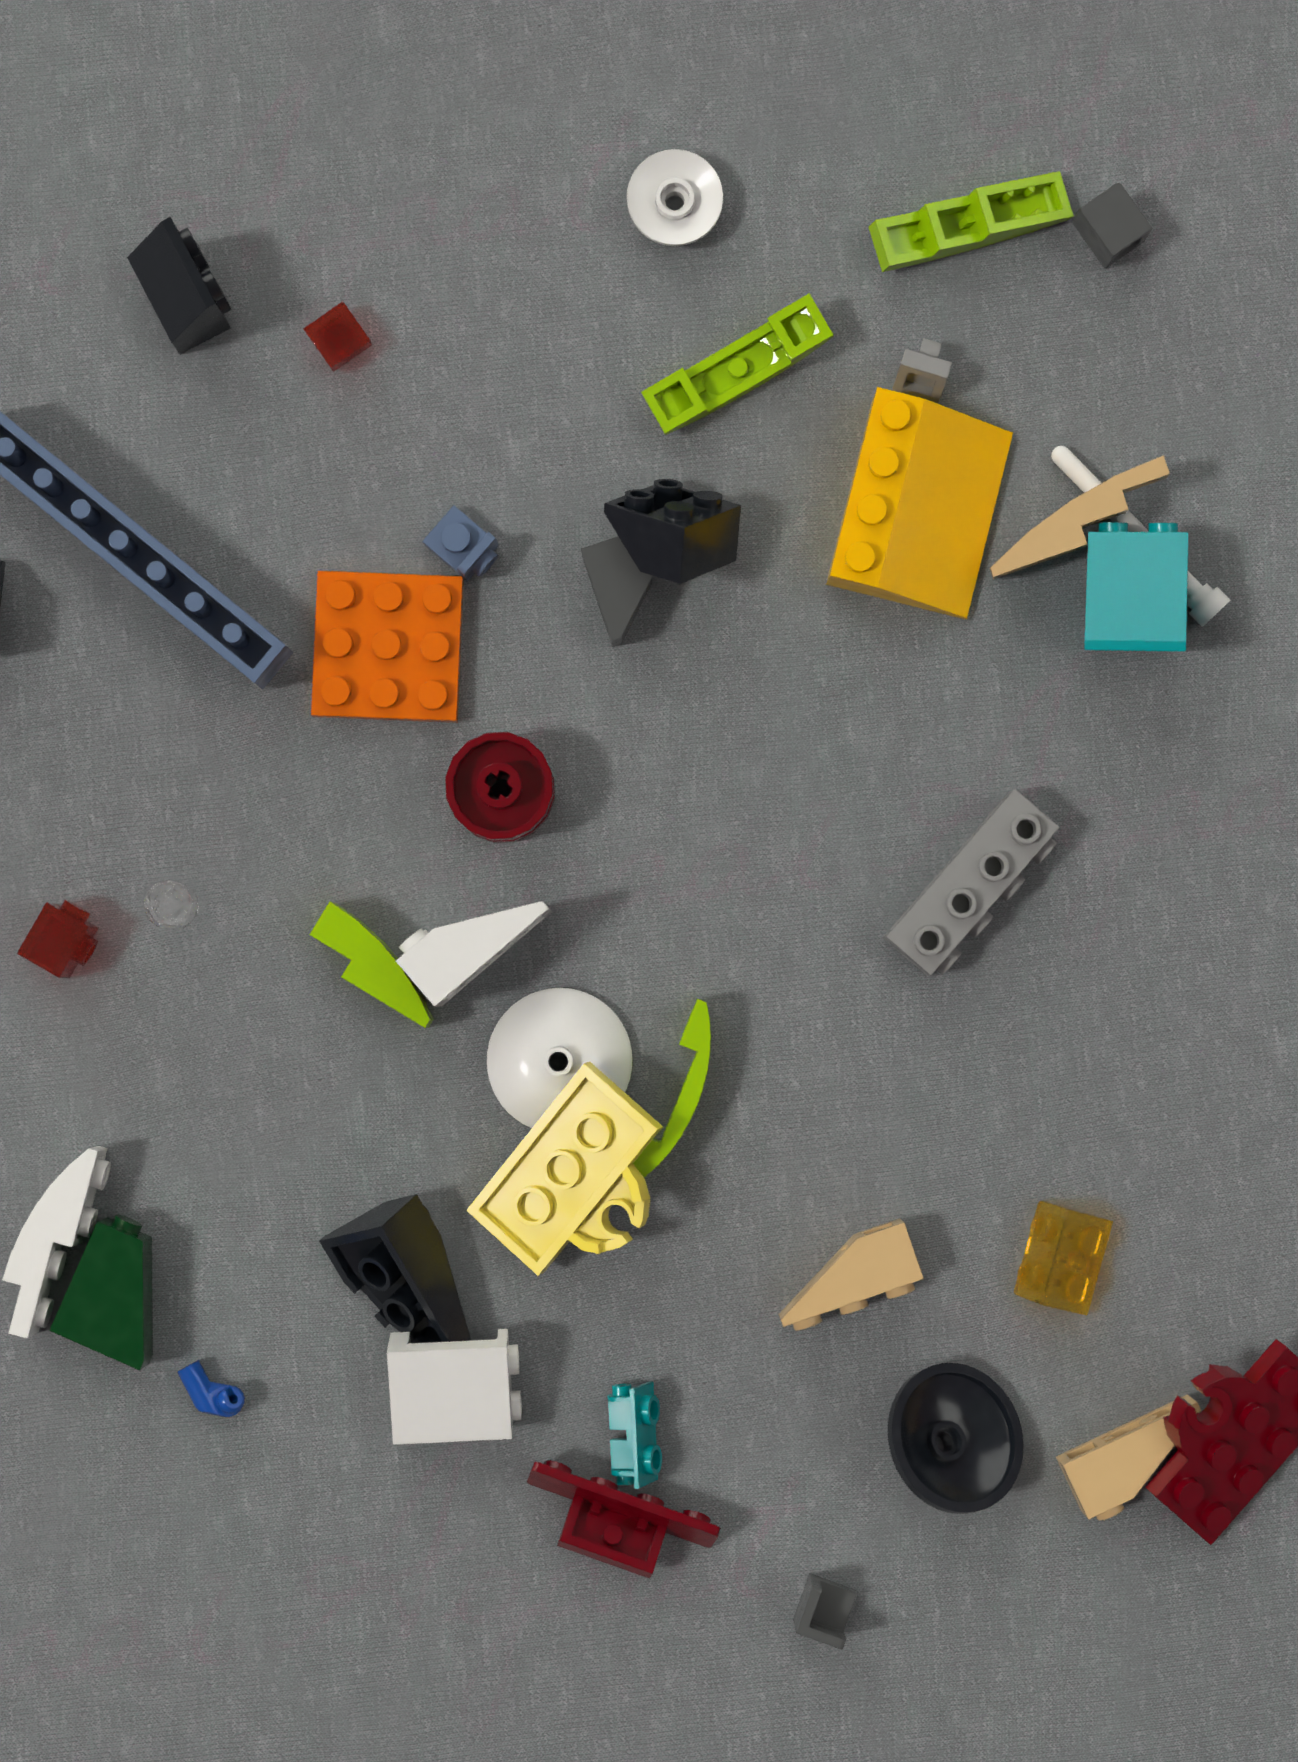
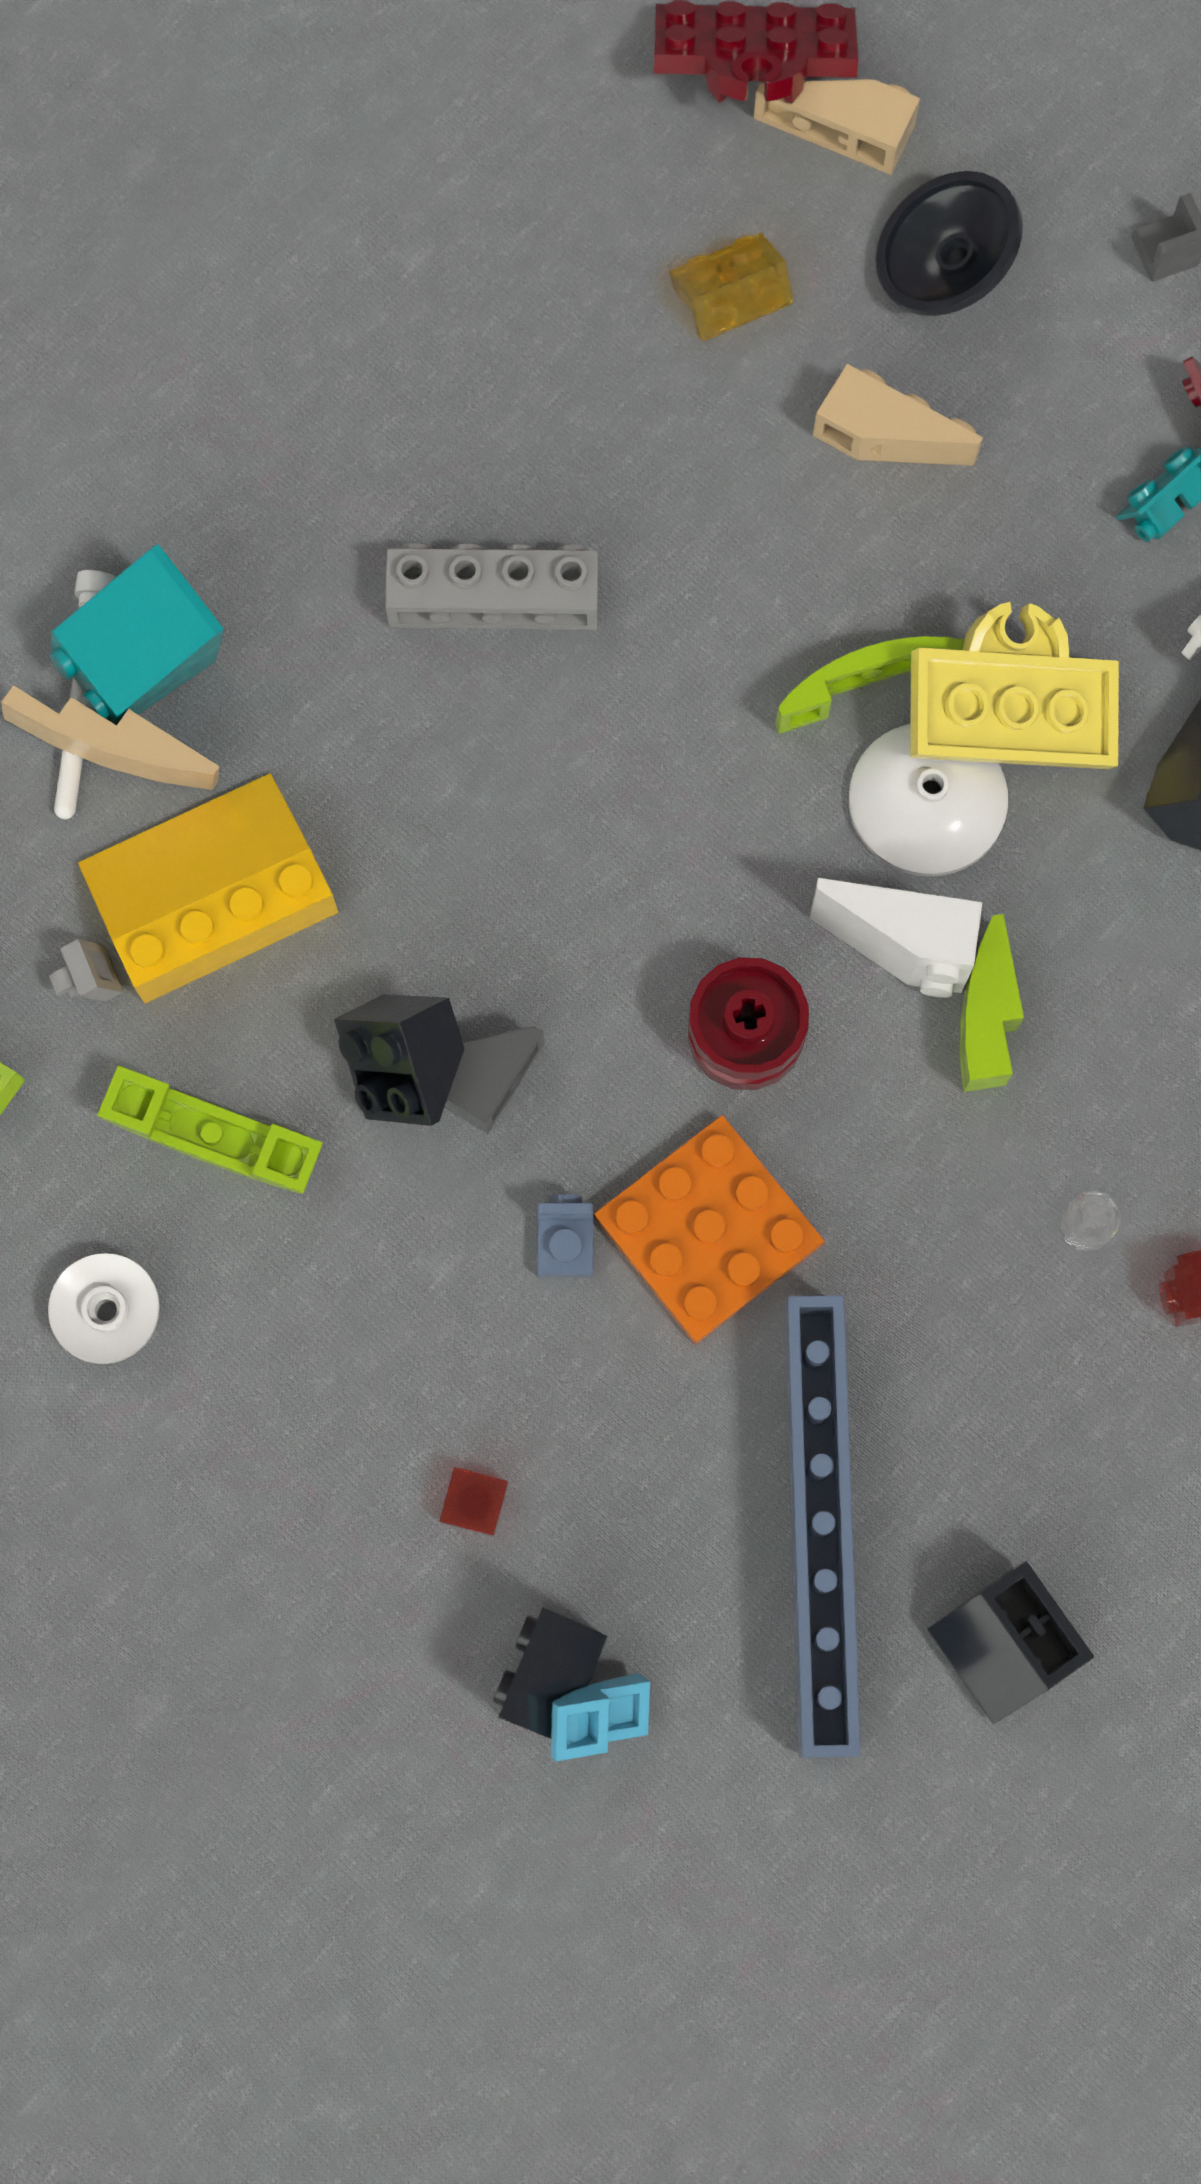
camera: 130 degrees left, 10 degrees down
(129, 295) = (599, 1714): none -> medium azure slope

